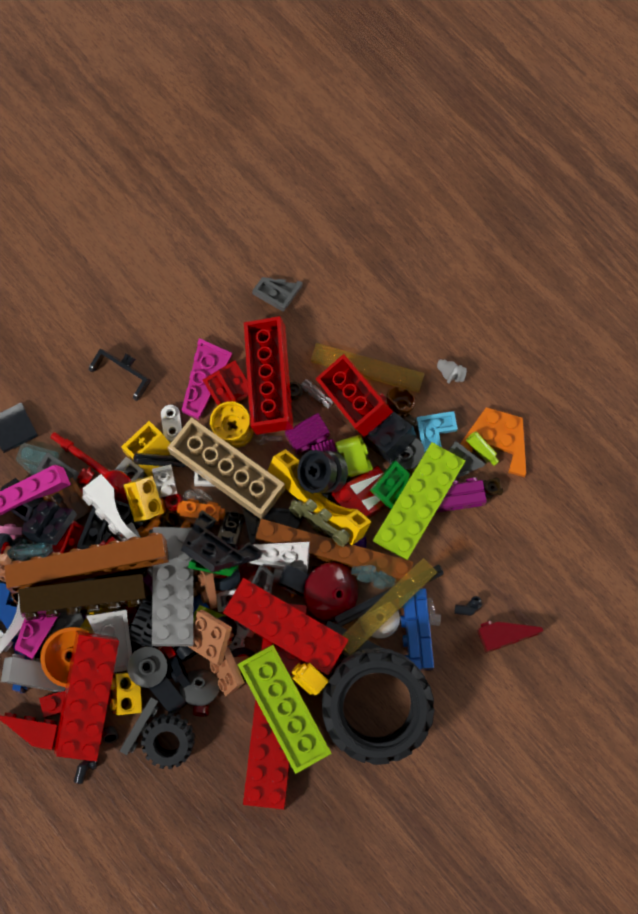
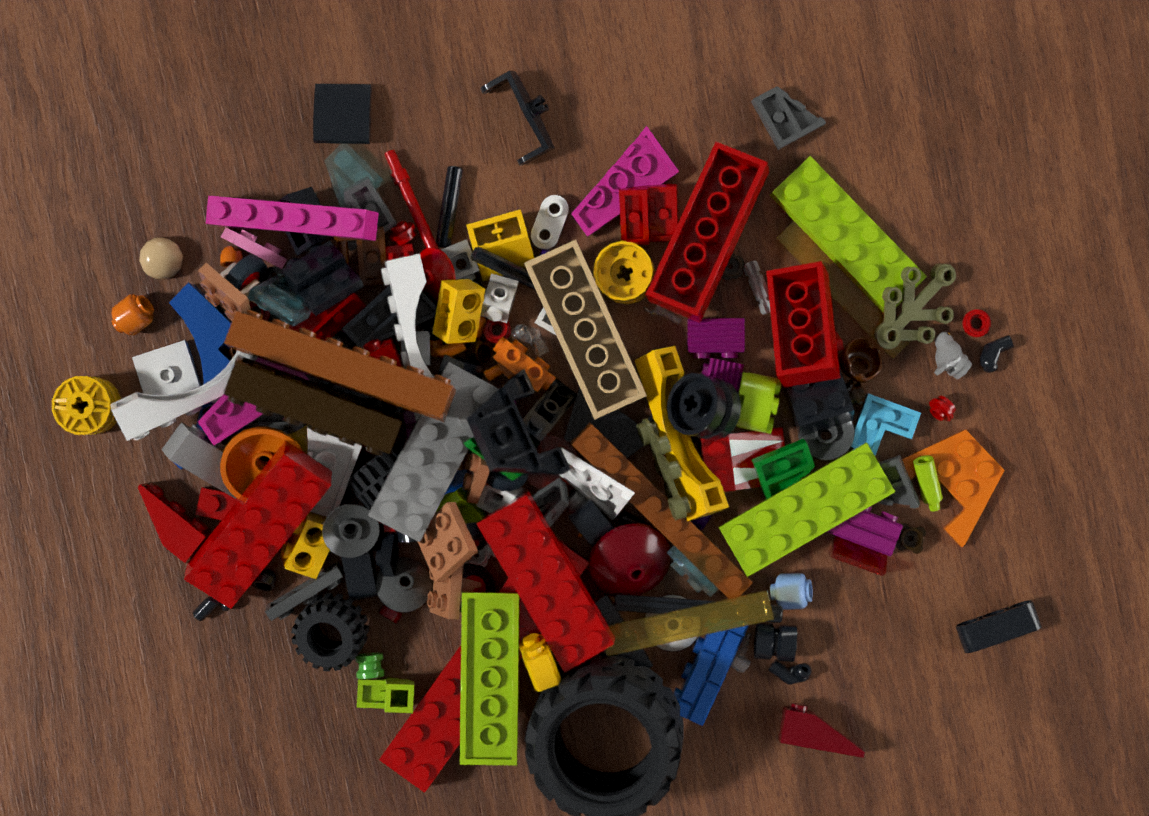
camera: 30 degrees right, 15 degrees up
(105, 445) = (449, 206): none -> black axle
(205, 750) = (369, 665): none -> bright green wheel
(226, 761) = (389, 694): none -> lime brick
(352, 336) = (843, 231): none -> lime plate
(412, 354) = (912, 307): none -> olive plant
(441, 555) = (792, 591): none -> light blue head
(448, 592) = (775, 642): none -> black wheel
(455, 340) = (984, 319): none -> red plate
(465, 402) = (942, 408): none -> red plate
(467, 515) = (858, 556): none -> clear red slope
(474, 357) = (991, 353): none -> black arm
(575, 509) = (998, 626): none -> black beam

